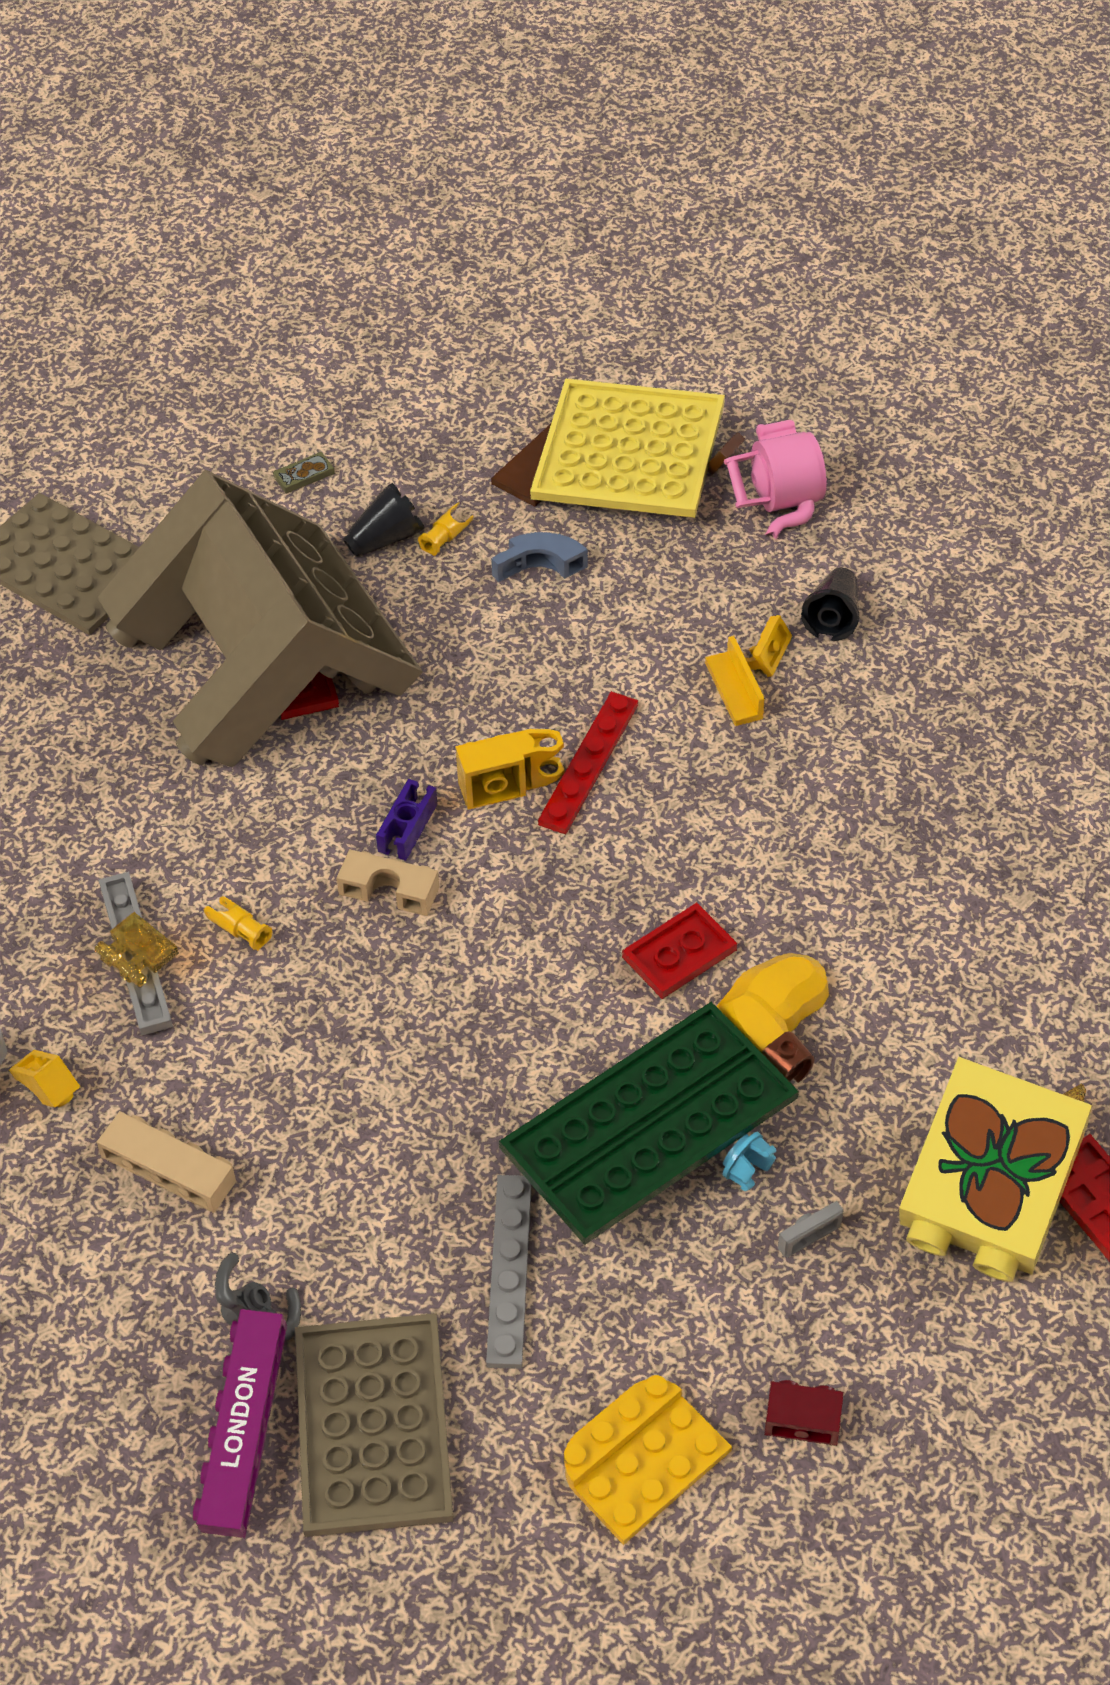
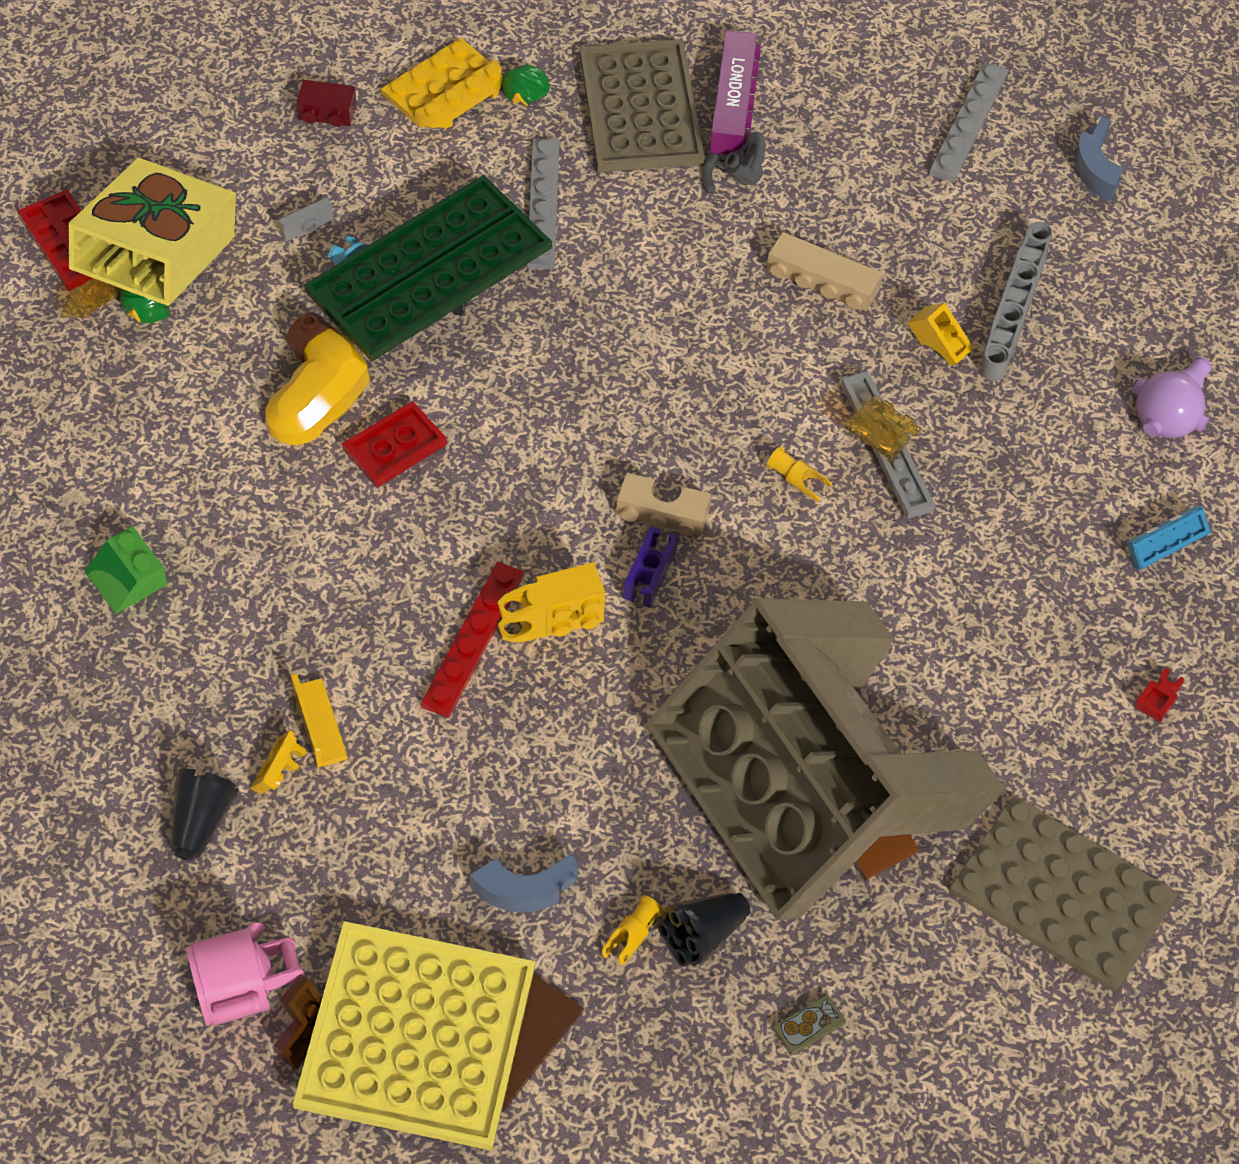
camera: 175 degrees right, 5 degrees up
(531, 1454) = (525, 84): none -> green hair
(943, 814) = (126, 570): none -> bright green slope

